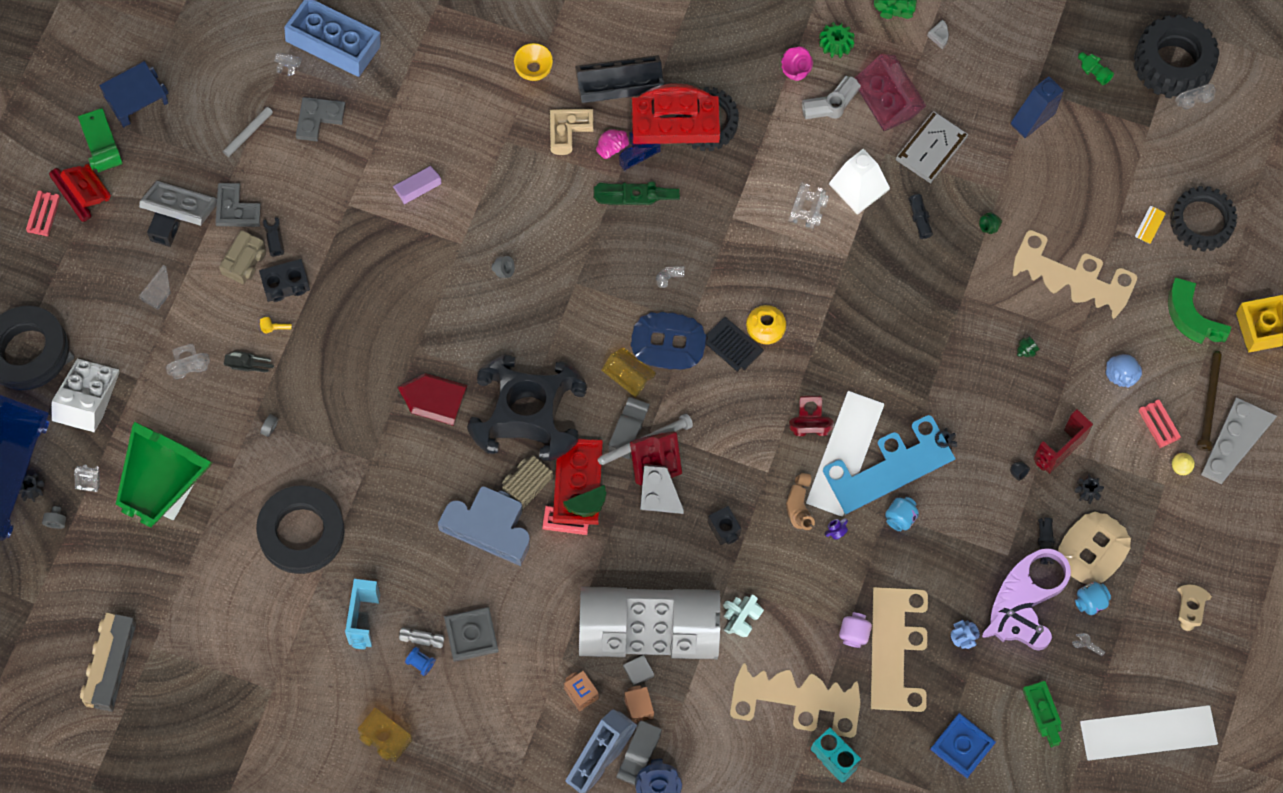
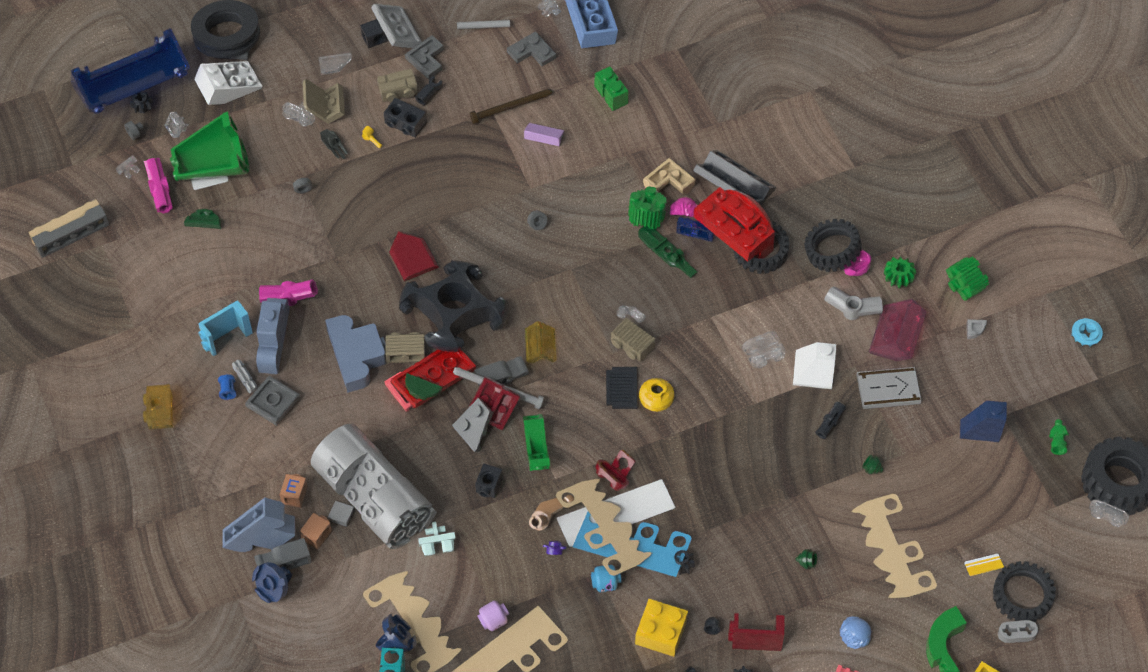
camera: 50 degrees right, 10 degrees down
(89, 556) = (127, 165): none -> clear tile
(142, 546) = (158, 185): none -> dark pink piece
(199, 331) = (324, 104): none -> dark tan bracket
(215, 537) = (203, 218): none -> dark green tile
(294, 499) = (244, 234): black tyre -> none
(342, 223) = (509, 105): none -> dark brown bar
(372, 530) = (289, 290): none -> dark pink piece
(406, 578) = (271, 334): none -> sand blue brick
(439, 90) = (609, 87): none -> green piece
(533, 54) = (691, 118): yellow piece -> none
(584, 171) = (647, 208): none -> green brick
(666, 355) = (573, 355): dark blue piece -> none
(699, 297) = (632, 340): none -> dark tan brick
(726, 459) = (536, 442): none -> green arch
(753, 45) = (838, 260): none -> black tyre
(804, 721) = (396, 634): none -> dark blue tile
(868, 470) = (612, 532): none -> tan piece
(987, 510) = (661, 627): none -> yellow brick
(1233, 256) = (1017, 631): none -> light grey beam

